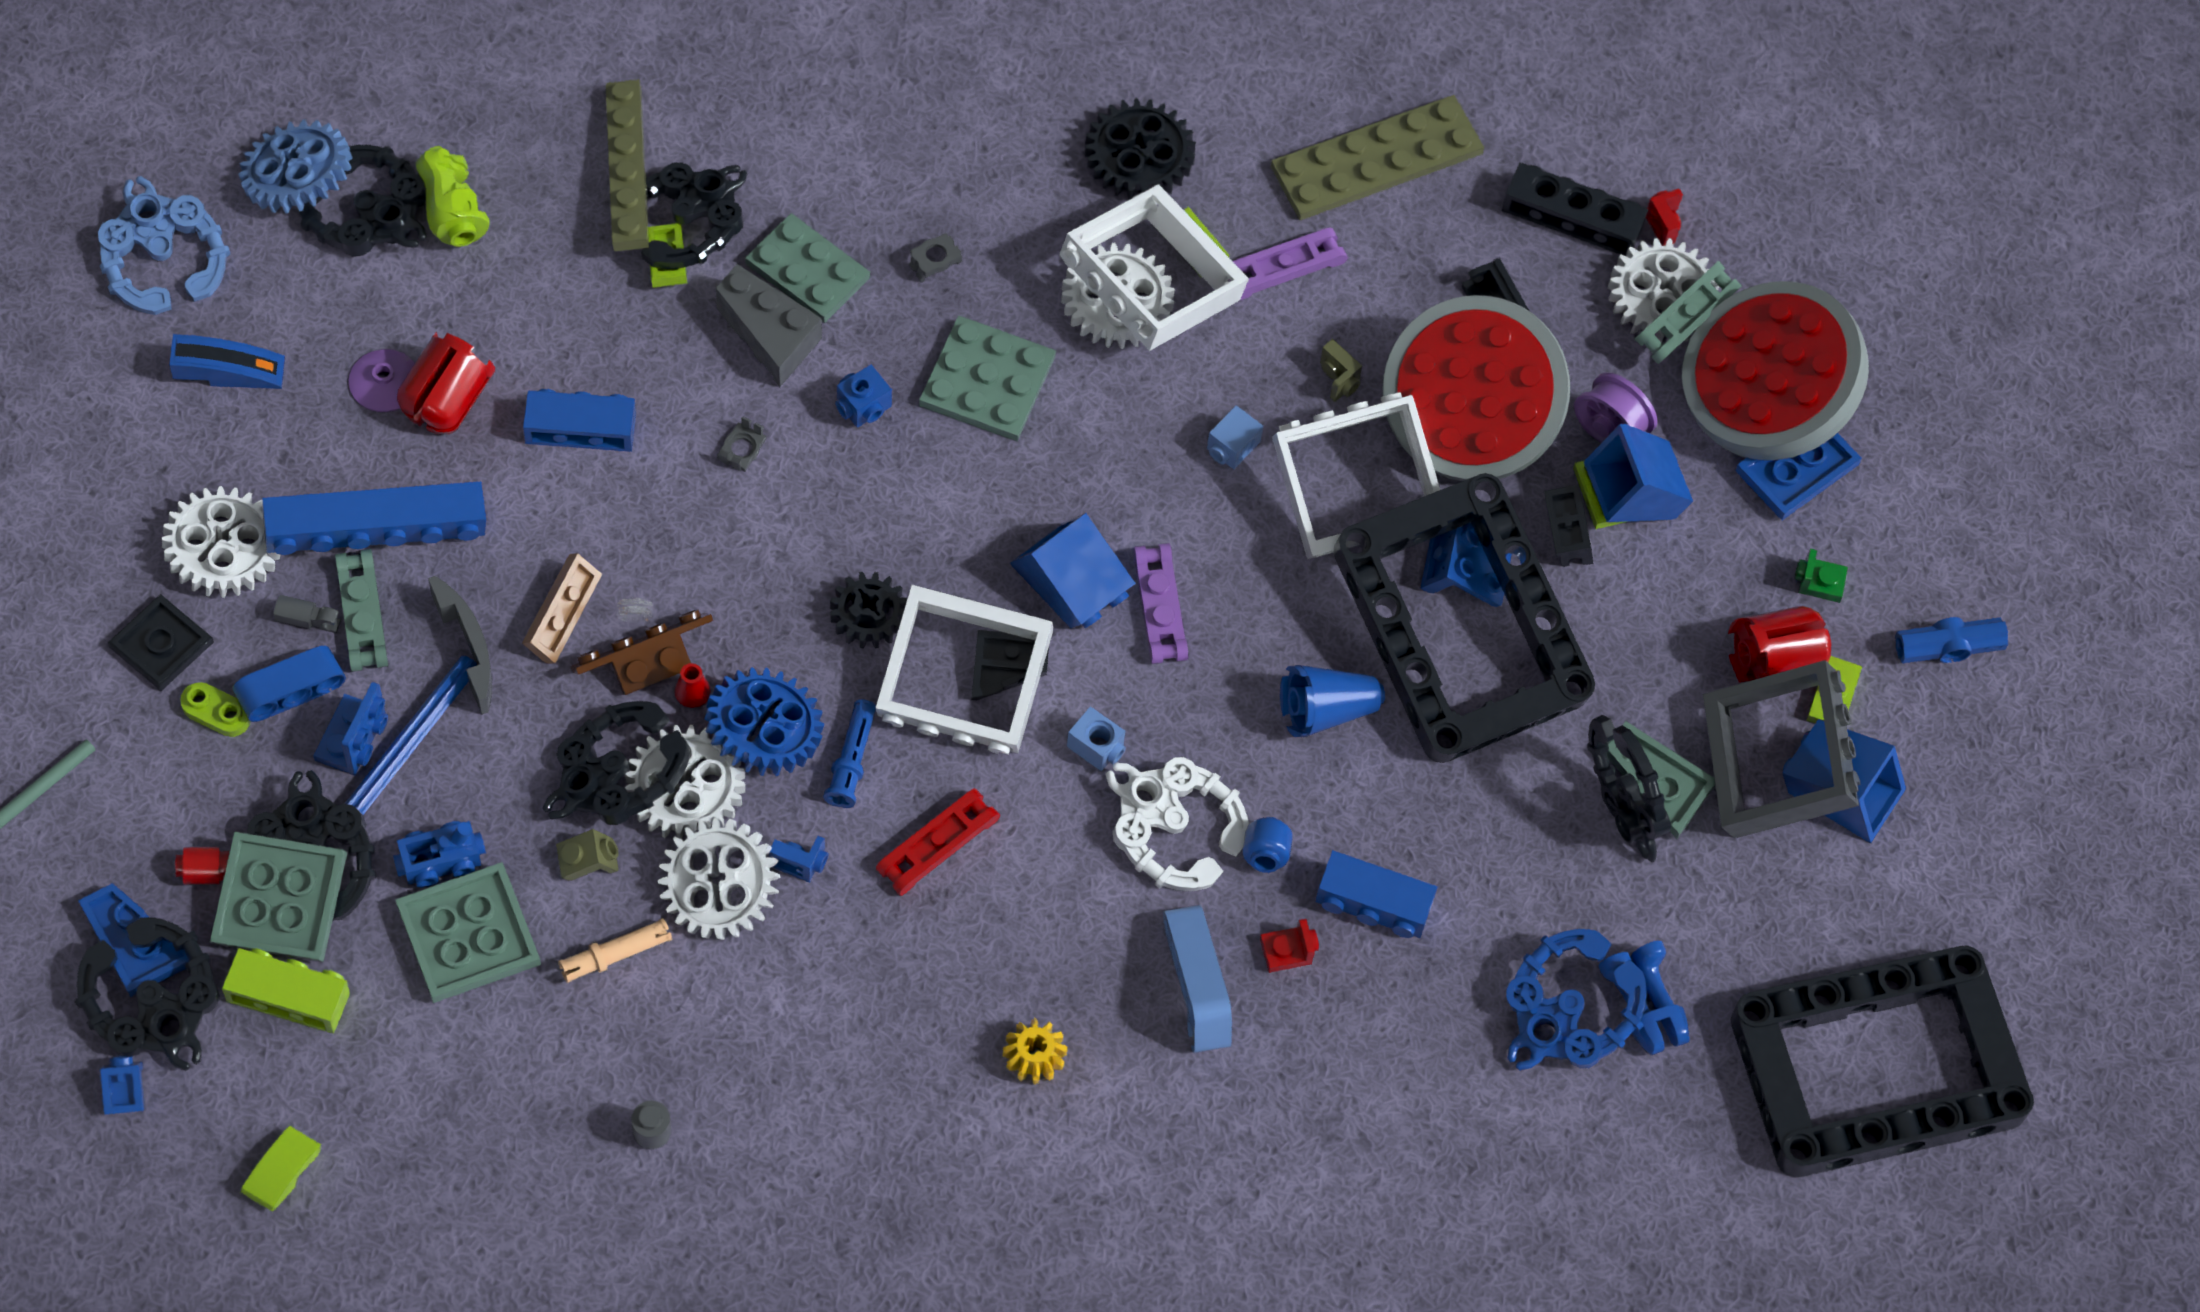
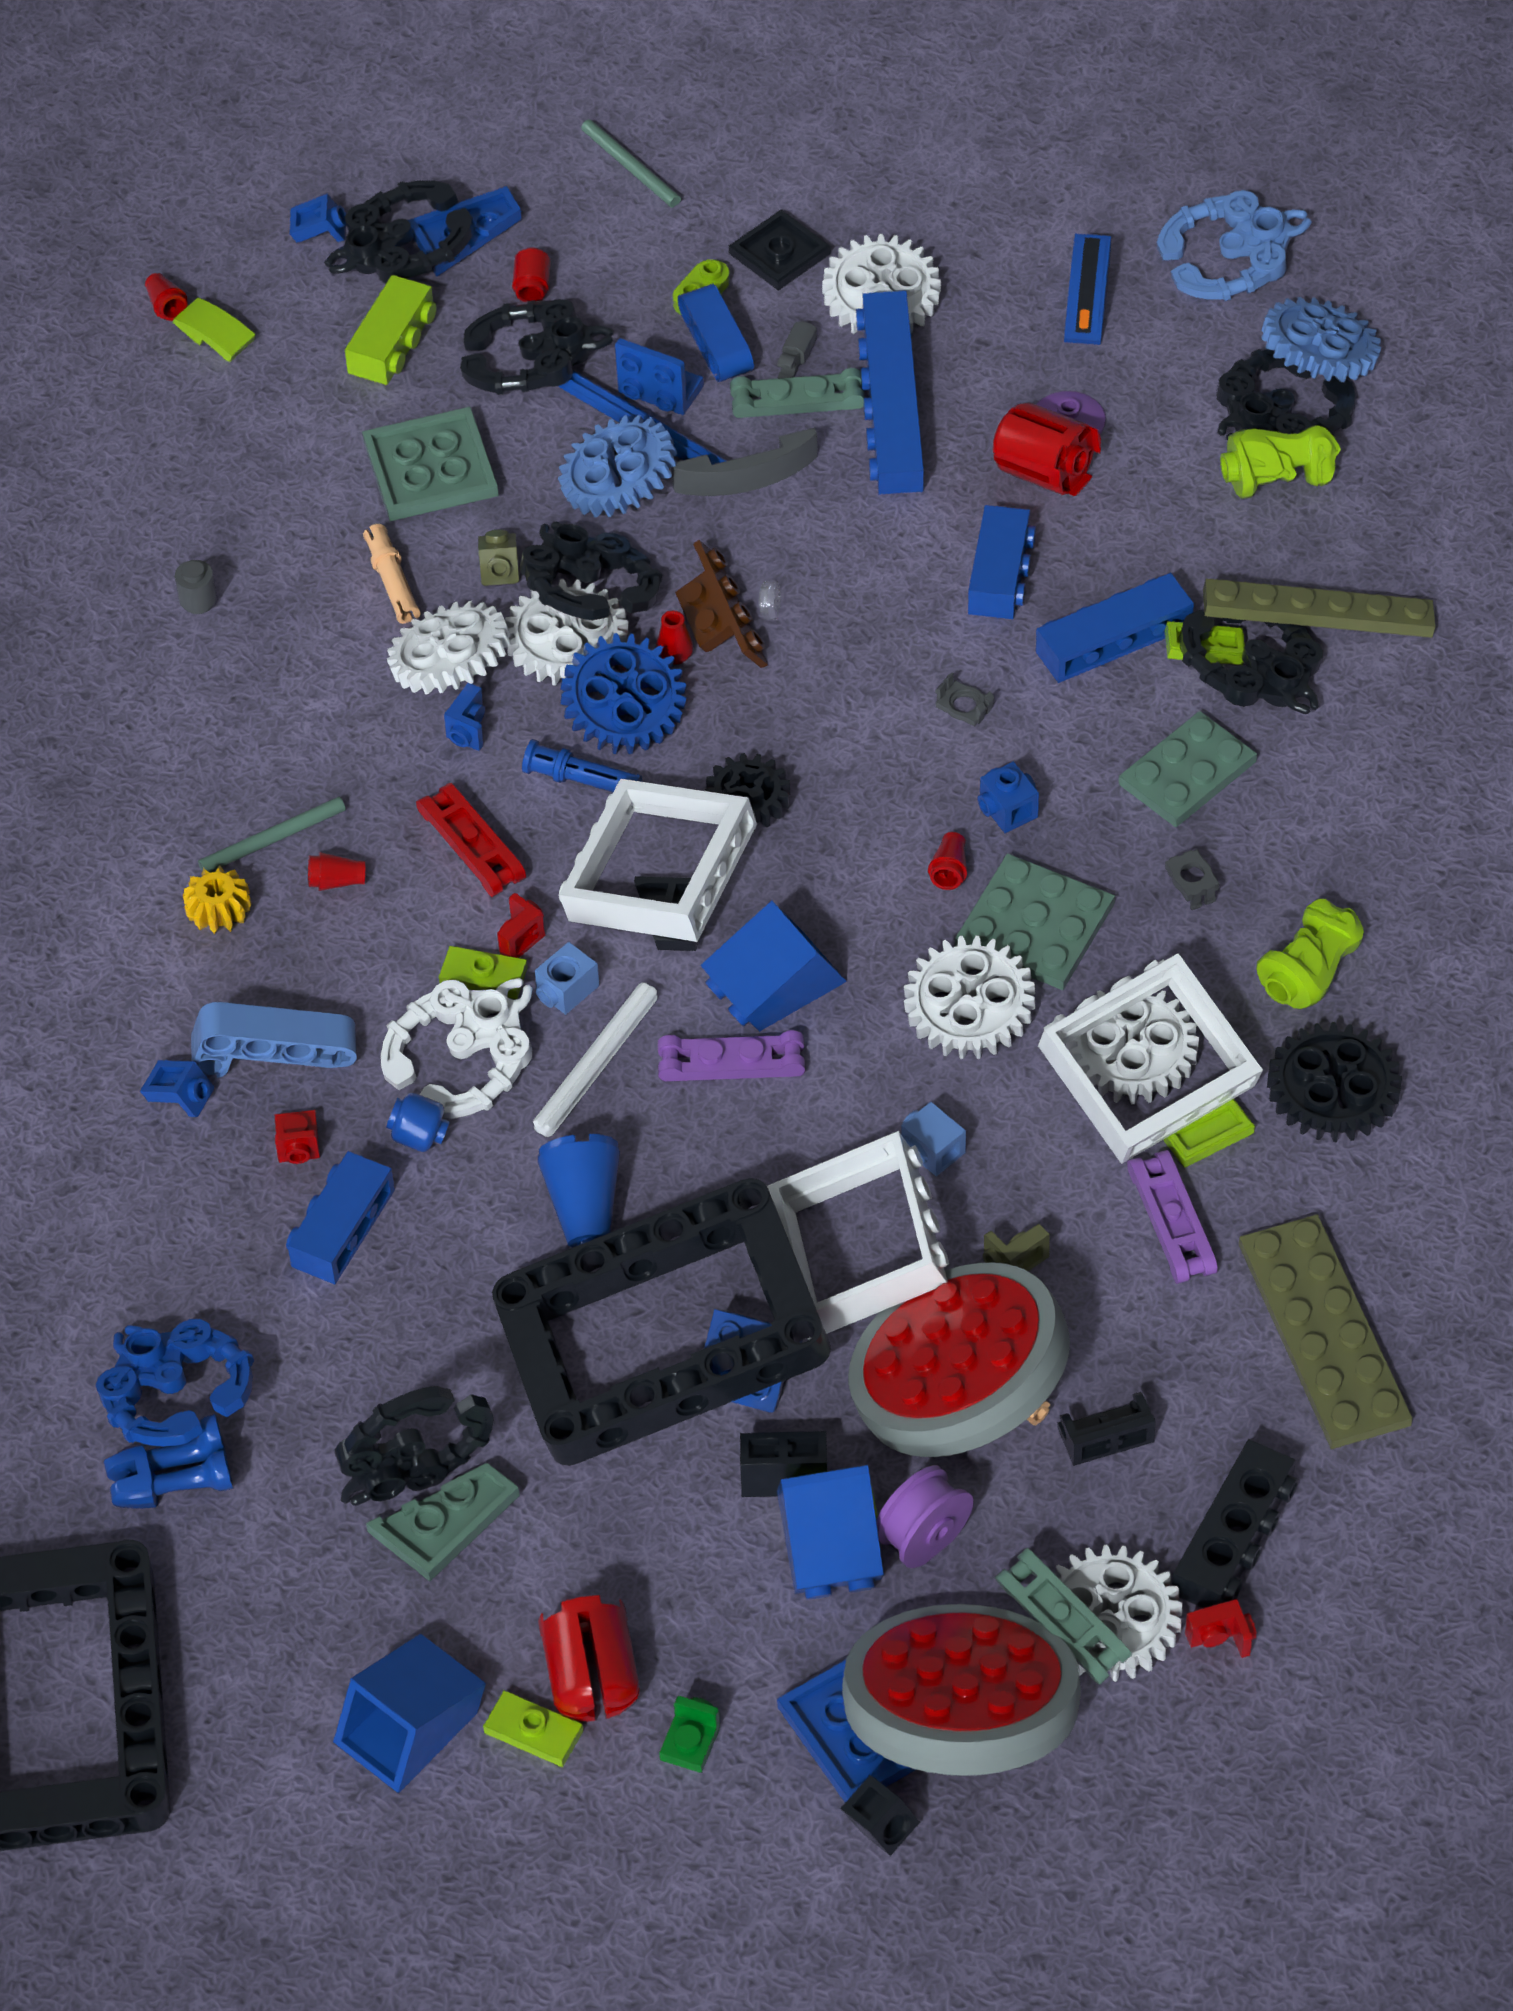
camera: 105 degrees right, 10 degrees down
(235, 1224) = (165, 297): none -> red cone
(278, 896) = (482, 318): sand green plate -> none
(446, 850) = (514, 435): blue brick -> none
(471, 719) = (642, 460): none -> medium blue gear
(562, 608) = (778, 542): plate -> none
(654, 324) = (1111, 627): none -> blue brick
(768, 321) = (1108, 720): dark grey wedge -> none
(932, 444) = (948, 865): none -> red cone
(945, 1019) = (272, 835): none -> sand green bar
(990, 956) = (333, 871): none -> red cone
(1025, 168) = (1309, 963): none -> lime animal
(1048, 783) = (523, 928): none -> red bracket
(1083, 418) = (969, 997): none -> white gear
(1088, 815) = (482, 969): none -> lime plate
(1175, 711) = (595, 1060): none -> white axle
(1249, 1056) = (178, 1083): none -> blue bracket
(1841, 749) = (441, 1588): dark grey window -> none
(1876, 431) = (880, 1815): none -> black brick
(1951, 640) = (584, 1867): blue piece -> none

